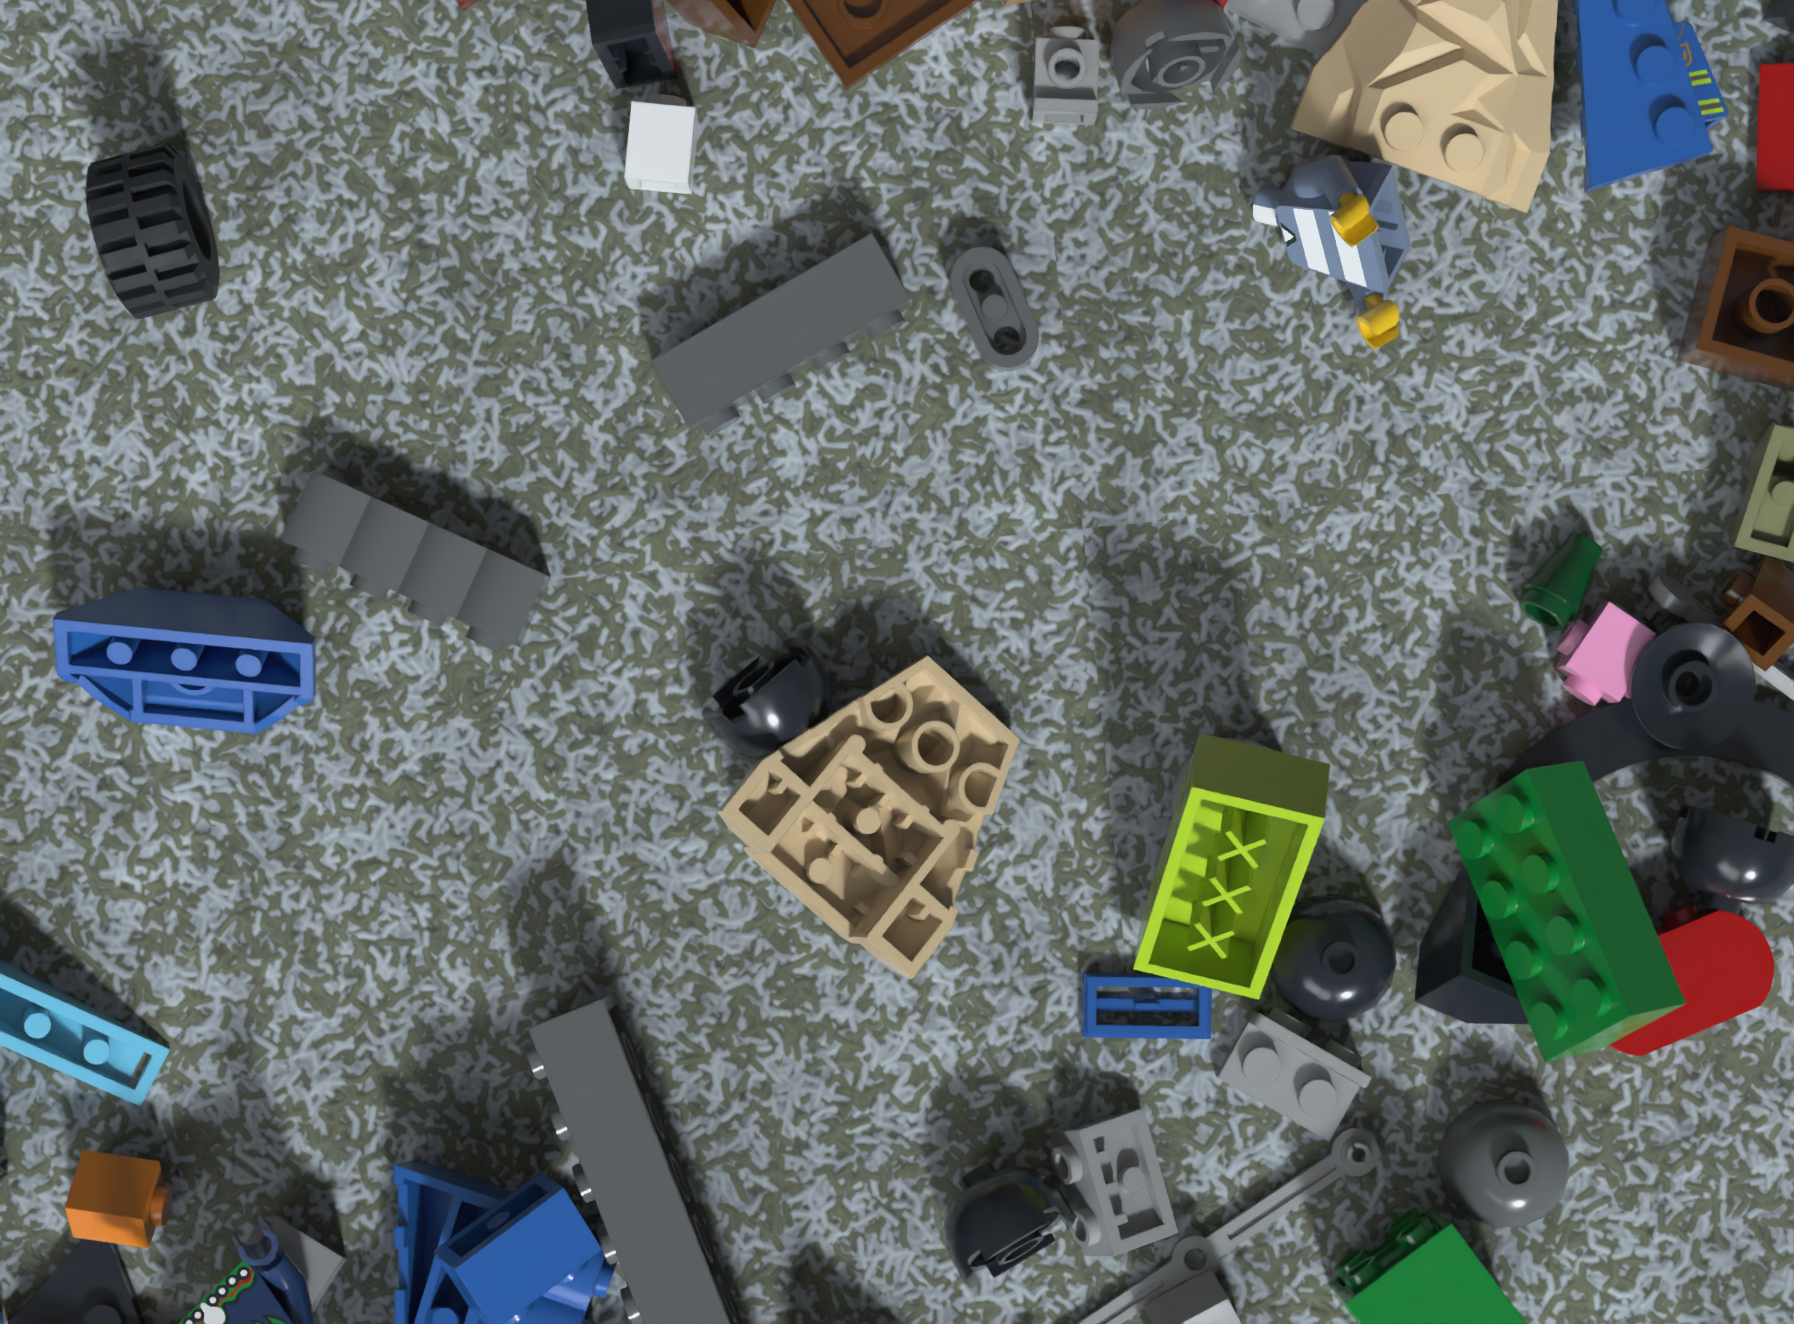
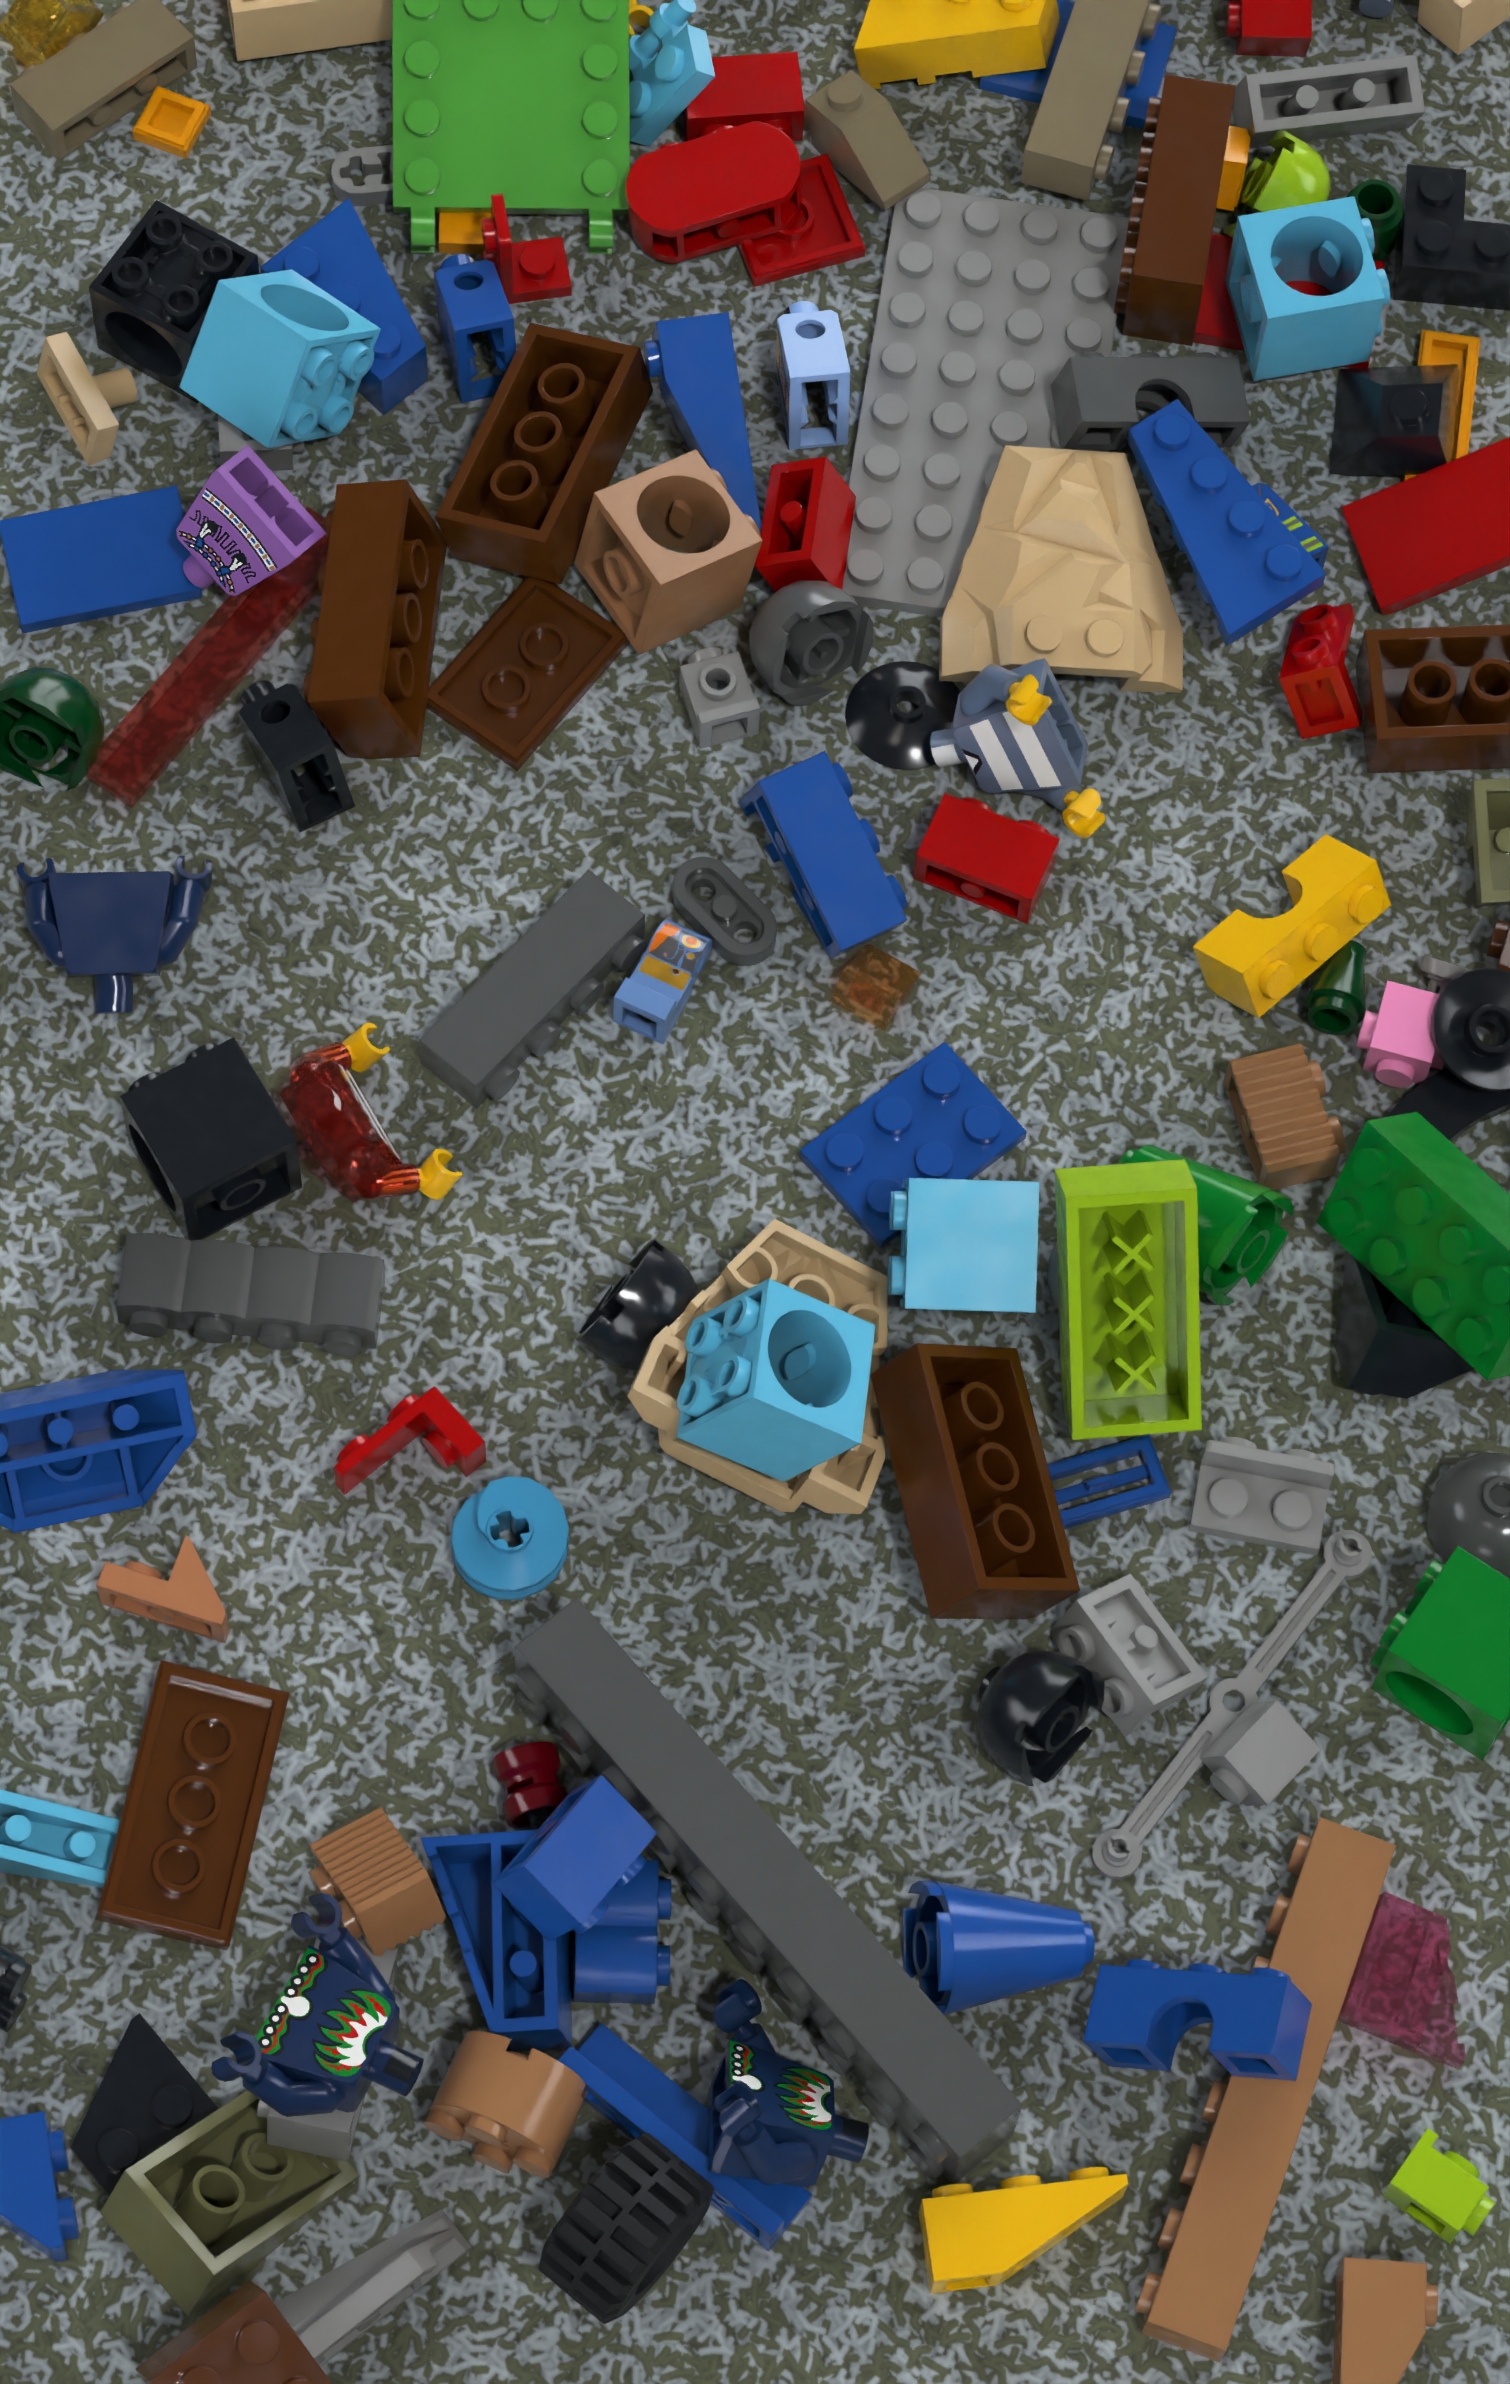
camera: 25 degrees left, 20 degrees down
(117, 1199) = (151, 1974): orange brick -> none
(209, 1044) = (192, 1806): none -> reddish brown tile
(262, 848) = (181, 1602): none -> nougat slope
(340, 1189) = (376, 1882): none -> medium nougat brick
(400, 138) = (113, 923): none -> dark blue torso
(416, 400) = (211, 1139): none -> black brick
(520, 1131) = (529, 1780): none -> dark red wheel
(551, 768) = (448, 1440): none -> red bracket
(552, 427) = (346, 1129): none -> clear red torso
(555, 910) = (487, 1560): none -> dark azure piece
(661, 145) = (363, 861): white brick -> none
(902, 857) = (776, 1380): none -> medium azure brick
(910, 362) = (662, 981): none -> medium blue leg
(1023, 987) = (974, 1482): none -> reddish brown brick
(1093, 607) = (921, 1125): none -> blue plate
(1097, 750) = (965, 1245): none -> medium azure brick
(1111, 287) = (827, 853): none -> blue wedge
(1111, 434) = (870, 990): none -> clear orange slope
(1212, 153) = (886, 732): none -> black dish
(1268, 334) = (986, 857): none -> red brick
(1334, 958) = (1259, 1382): black cylinder -> none
(1365, 792) = (1235, 1224): none -> green cone
(1458, 700) = (1283, 1116): none -> medium nougat brick
(1497, 537) = (1264, 959): none -> yellow arch
(1665, 237) = (1316, 671): none -> red bracket

